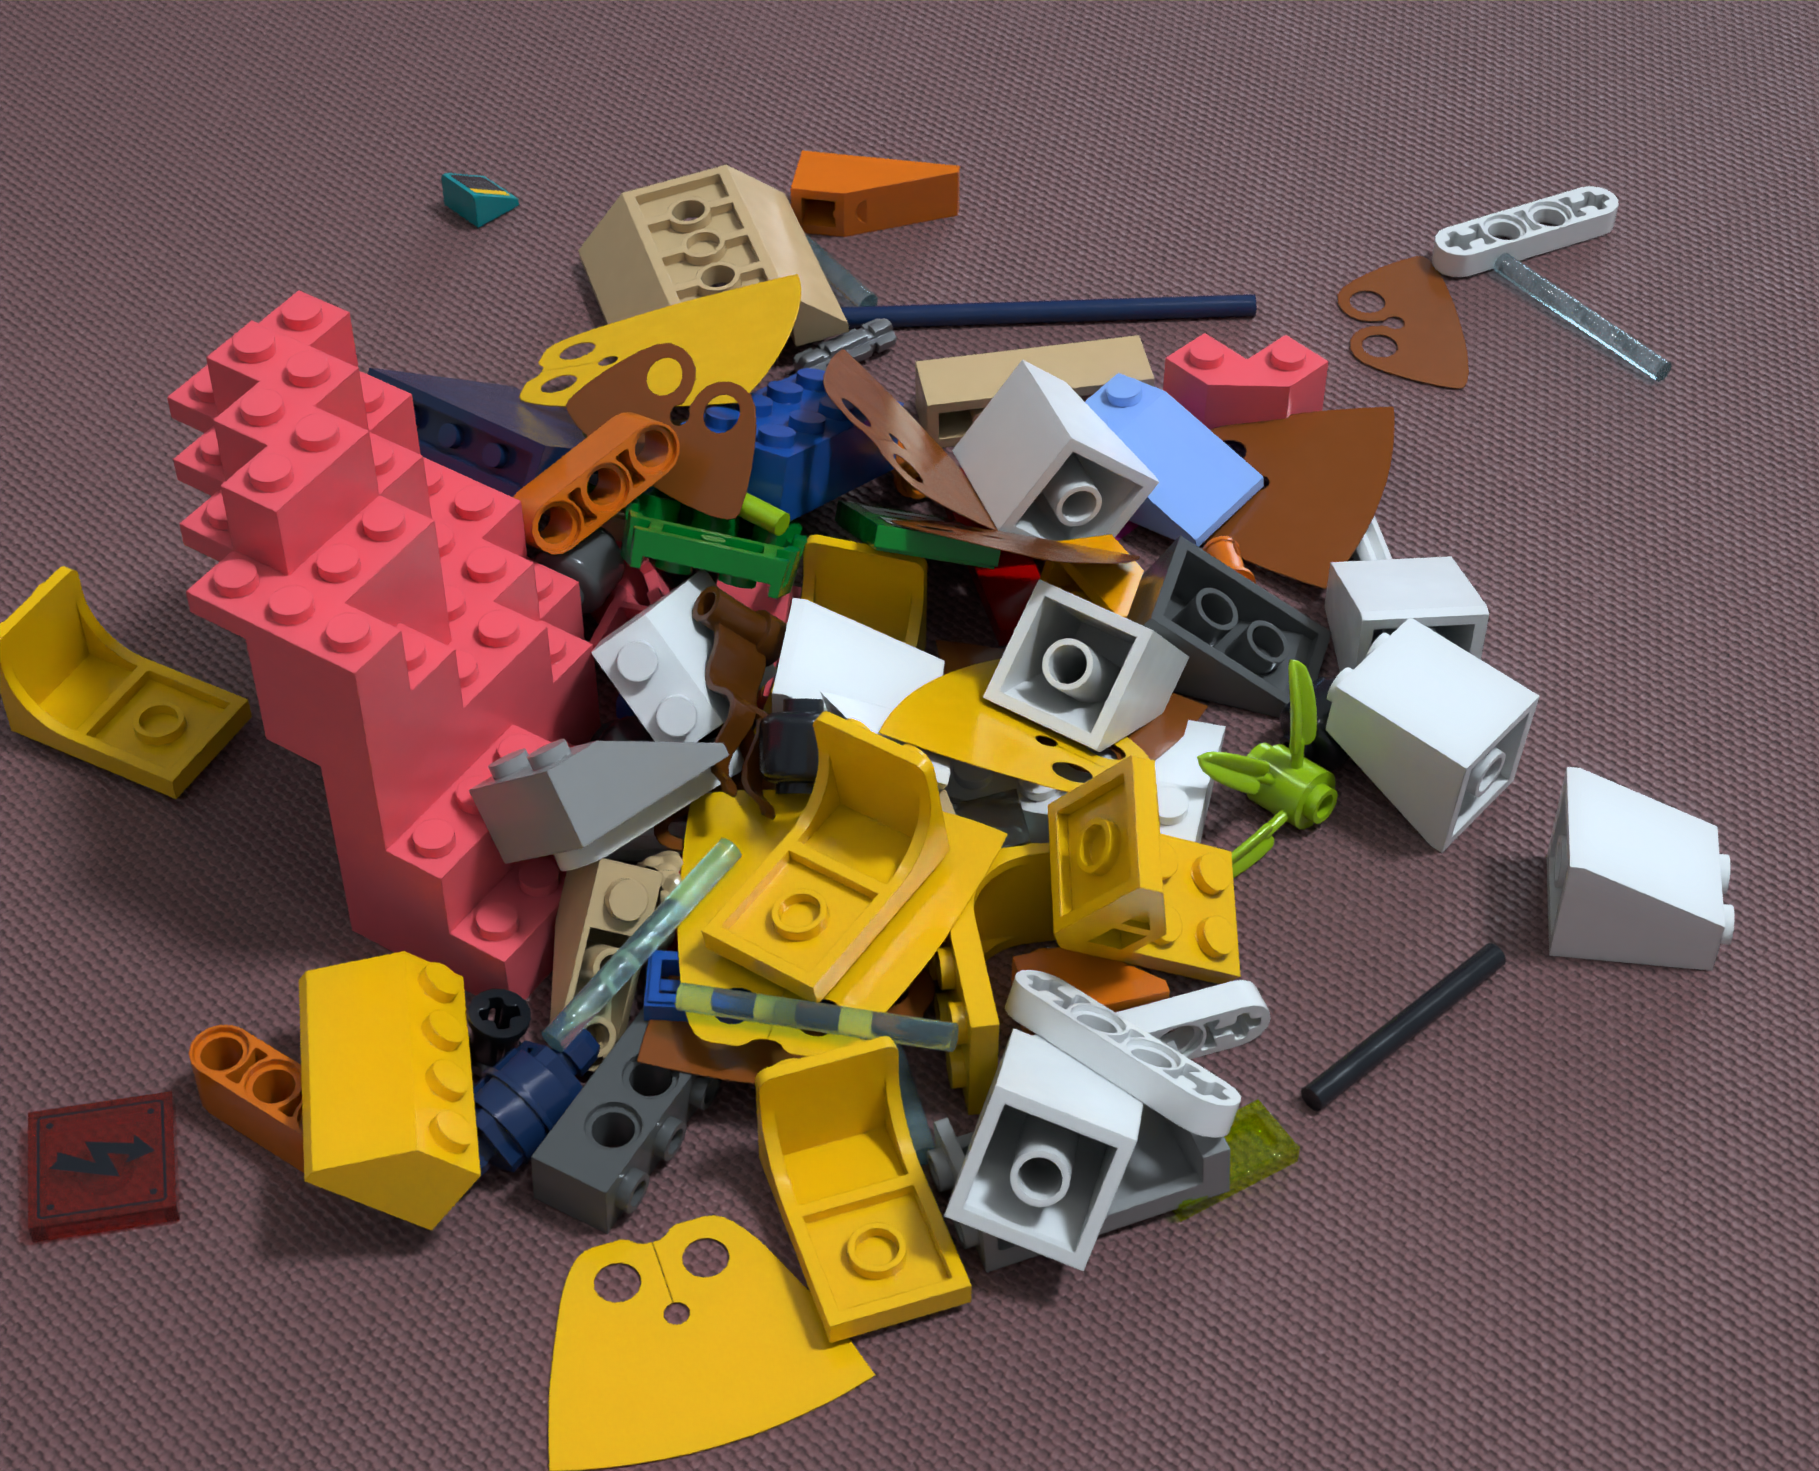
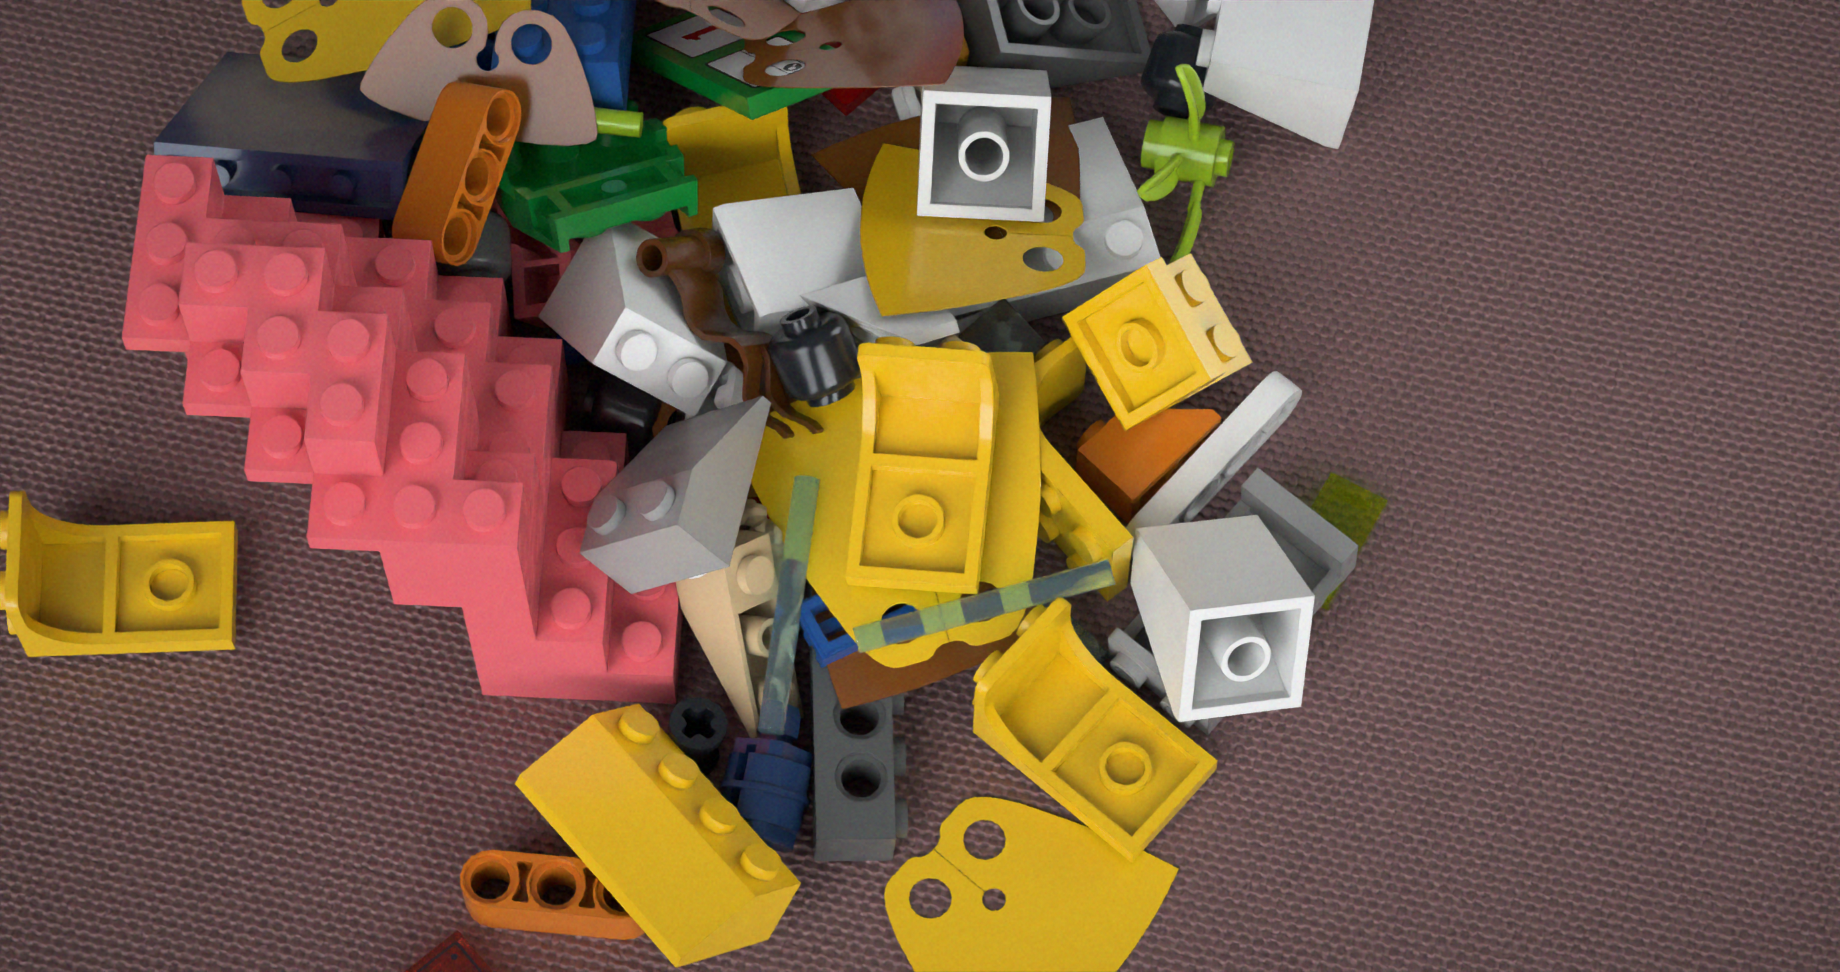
camera: 30 degrees left, 20 degrees up
(1123, 1053) = (1300, 518): white beam -> none
(1402, 1027) = (1403, 341): black bar -> none
(1634, 879) = (1517, 113): white slope -> none

